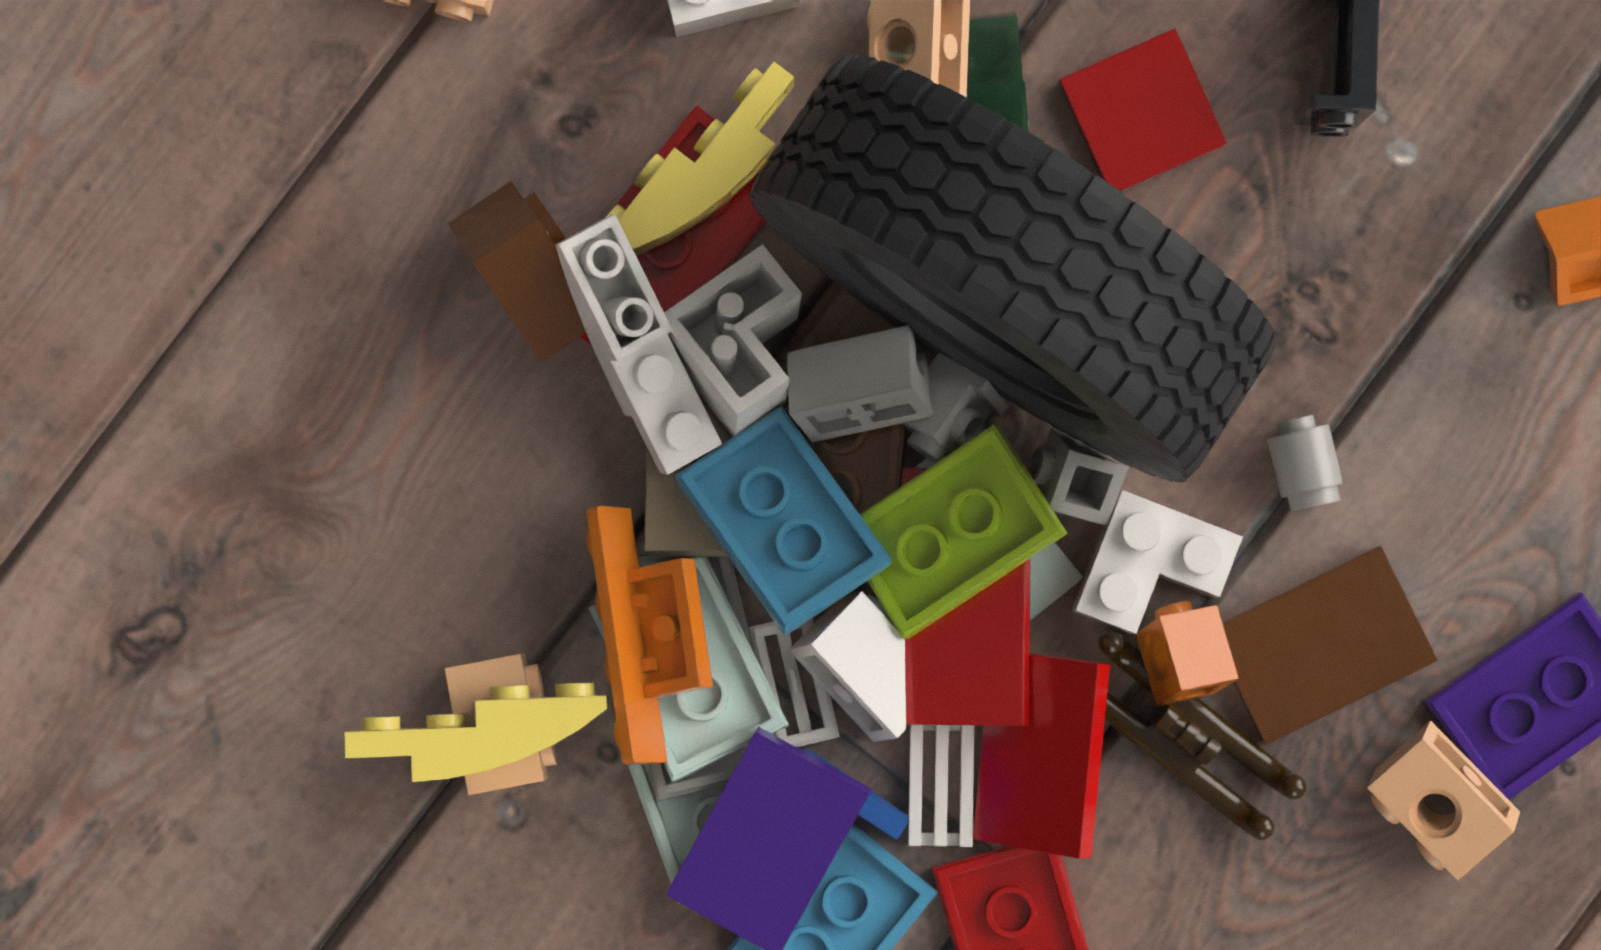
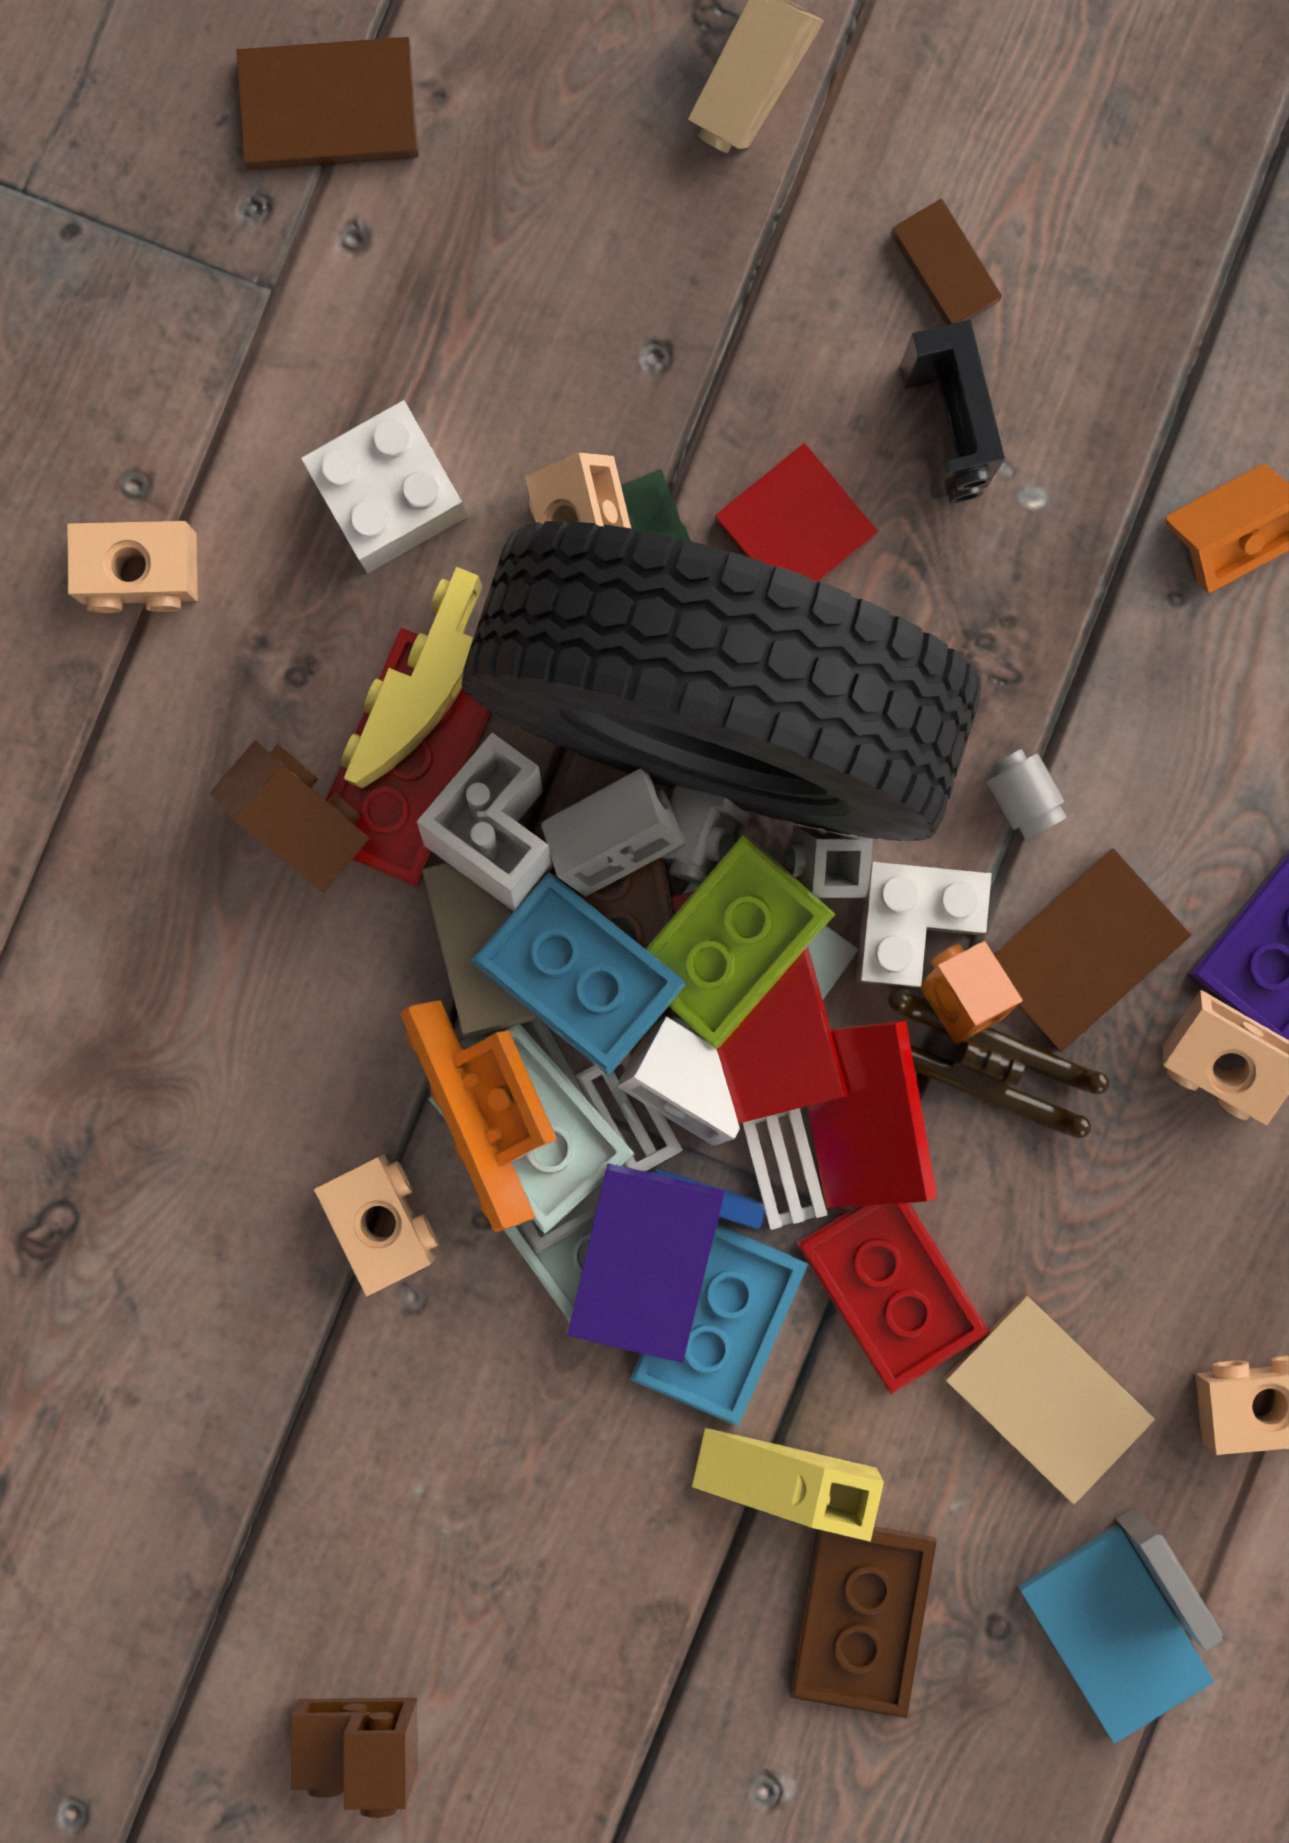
camera: 15 degrees left, 0 degrees up
(505, 731) = (381, 1232): light yellow slope -> none
(634, 344) = (400, 852): white slope -> none

